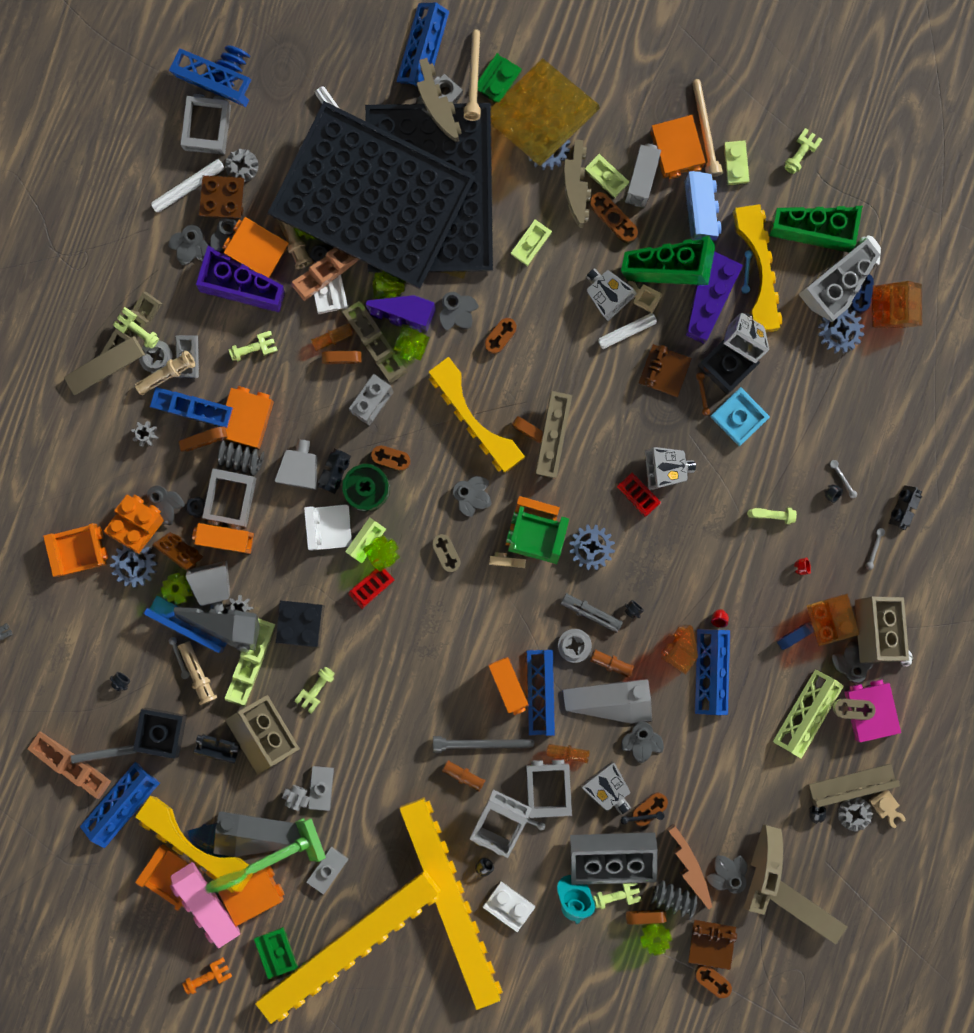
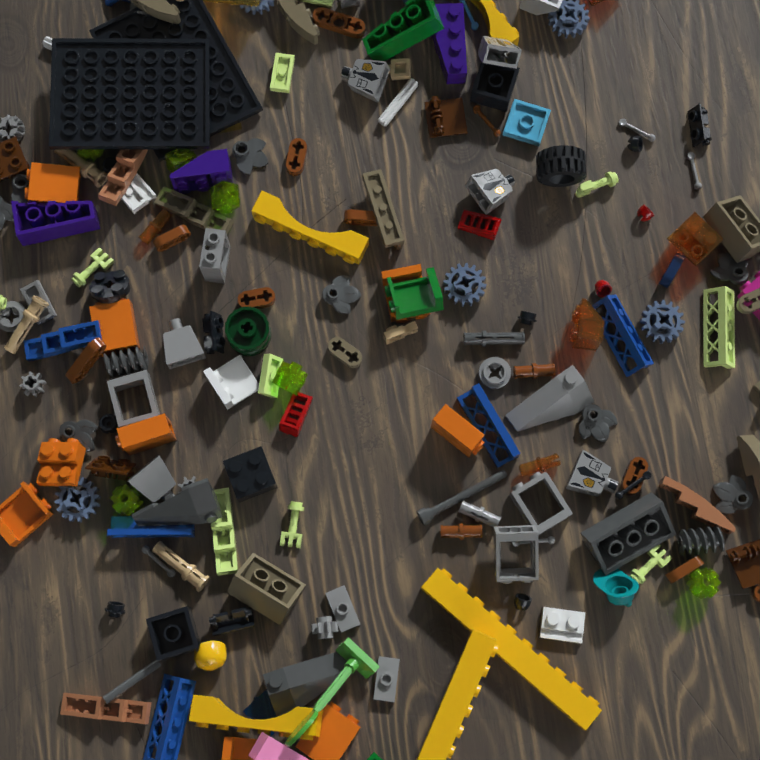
camera: 30 degrees left, 10 degrees down
(182, 769) = (210, 655): none -> yellow hair
(264, 367) = (116, 280): none -> black plate
(489, 769) = (479, 514): none -> light grey pin
(745, 482) = (561, 166): none -> black tyre
(754, 669) = (657, 315): none -> sand blue gear

